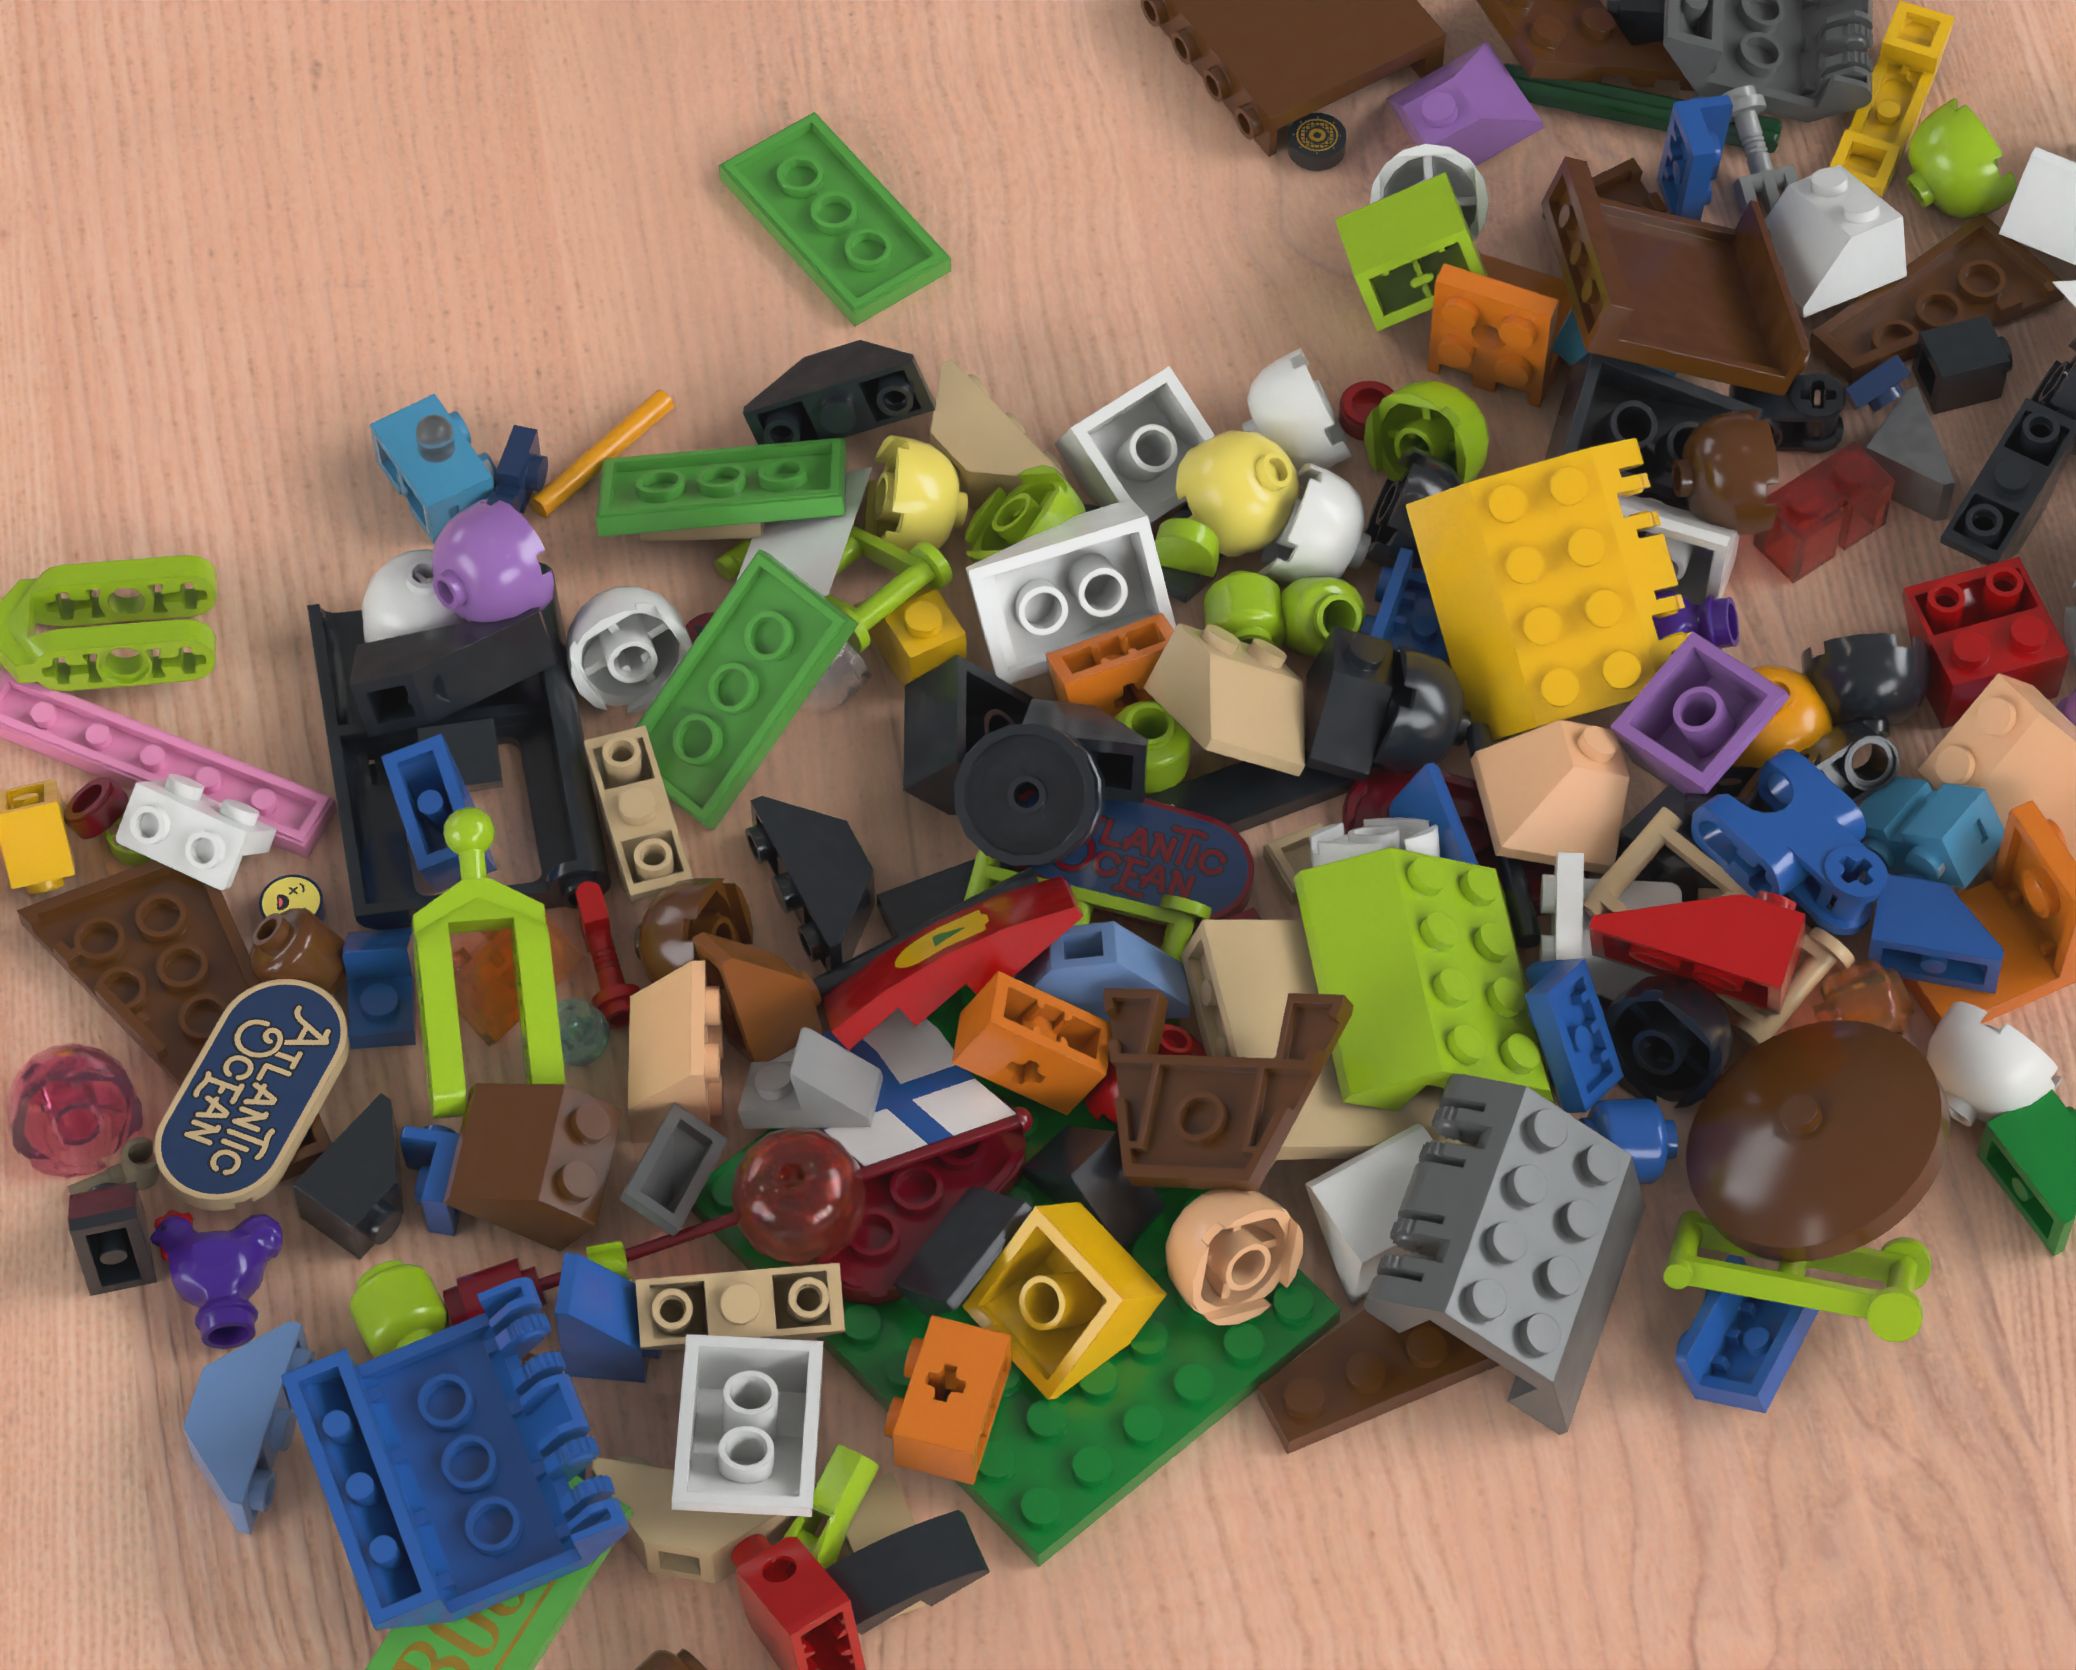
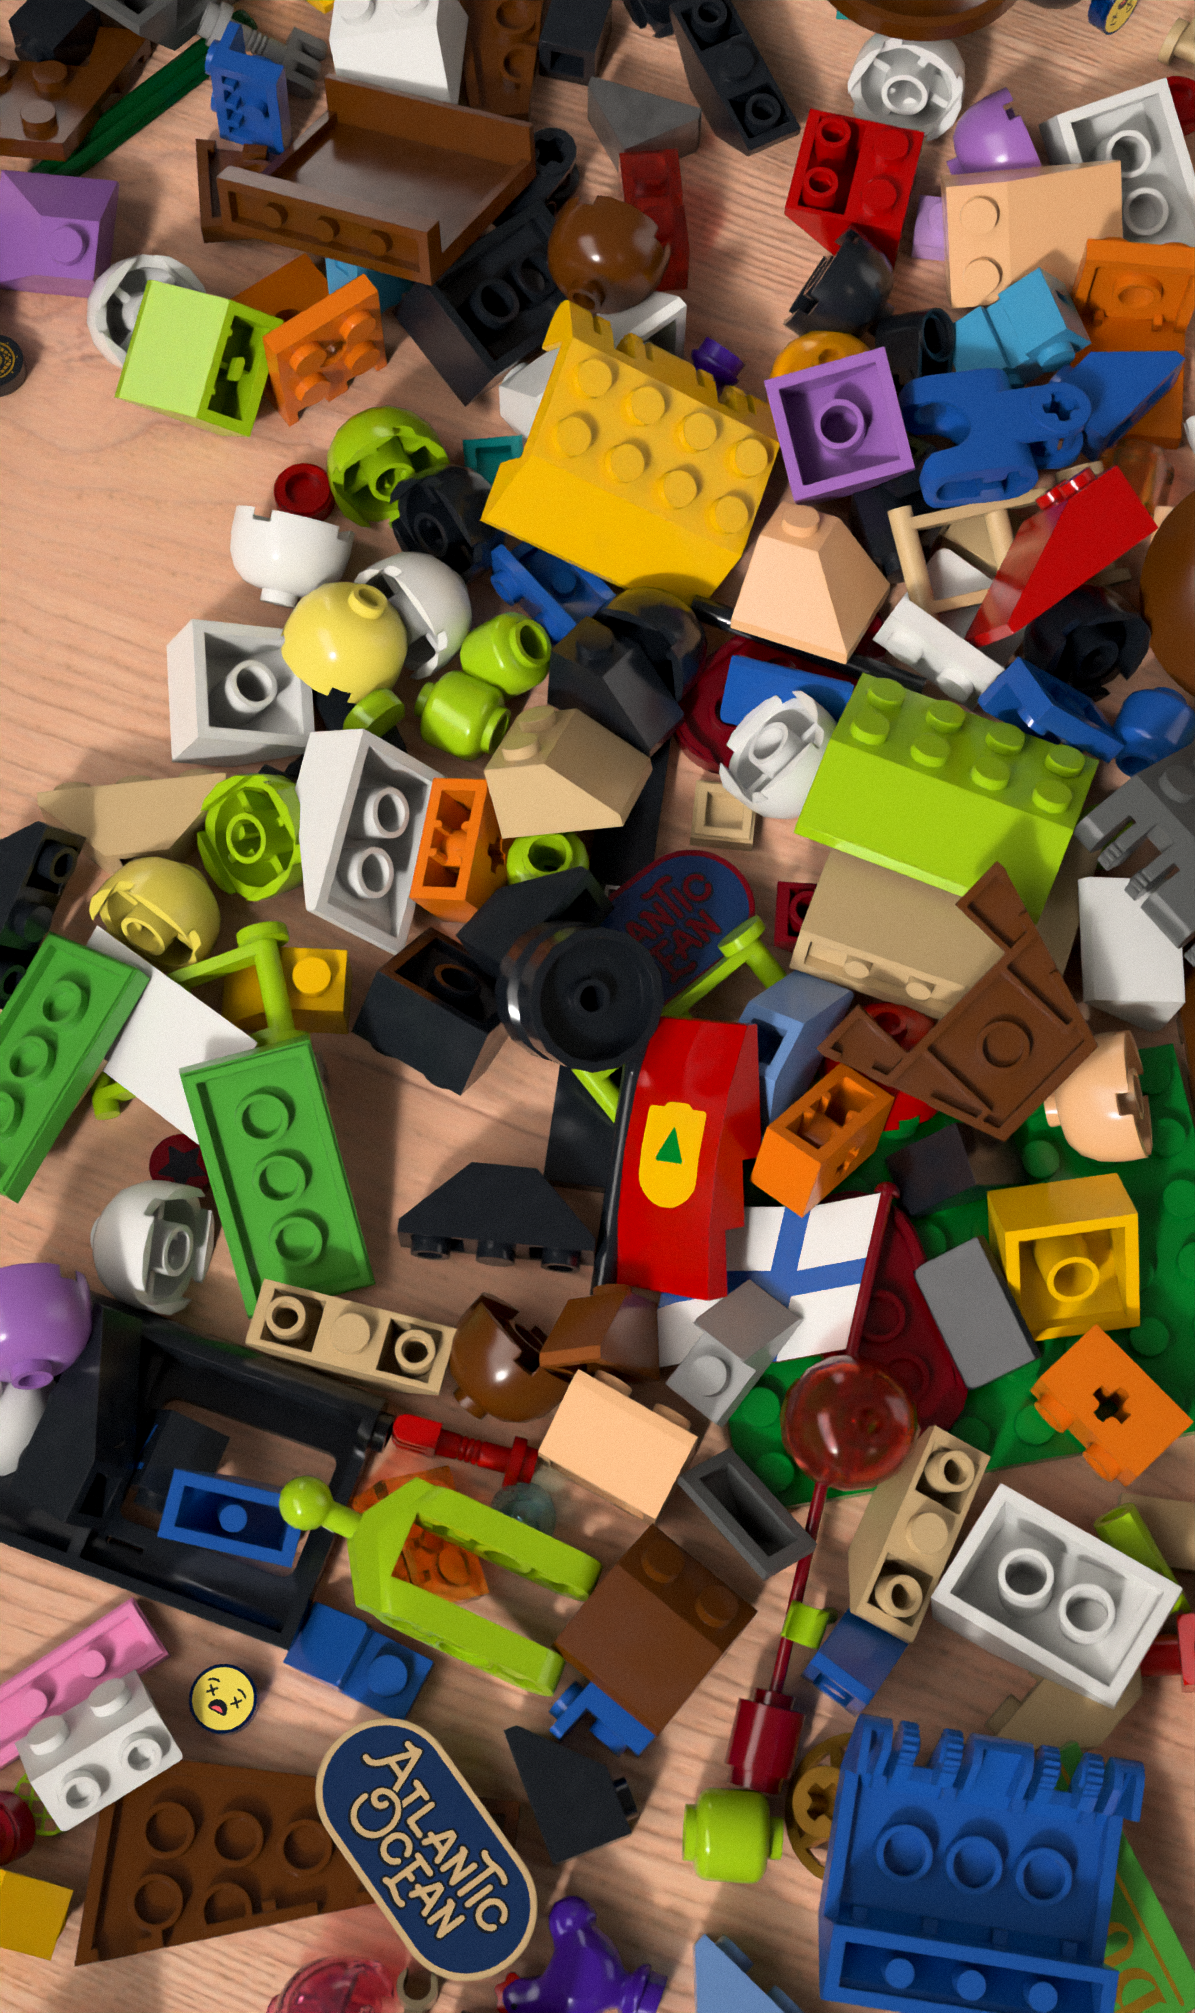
camera: 60 degrees left, 15 degrees up
(298, 948) = (296, 1725): reddish brown head -> none
(1878, 386) = (570, 102): dark blue plate -> none

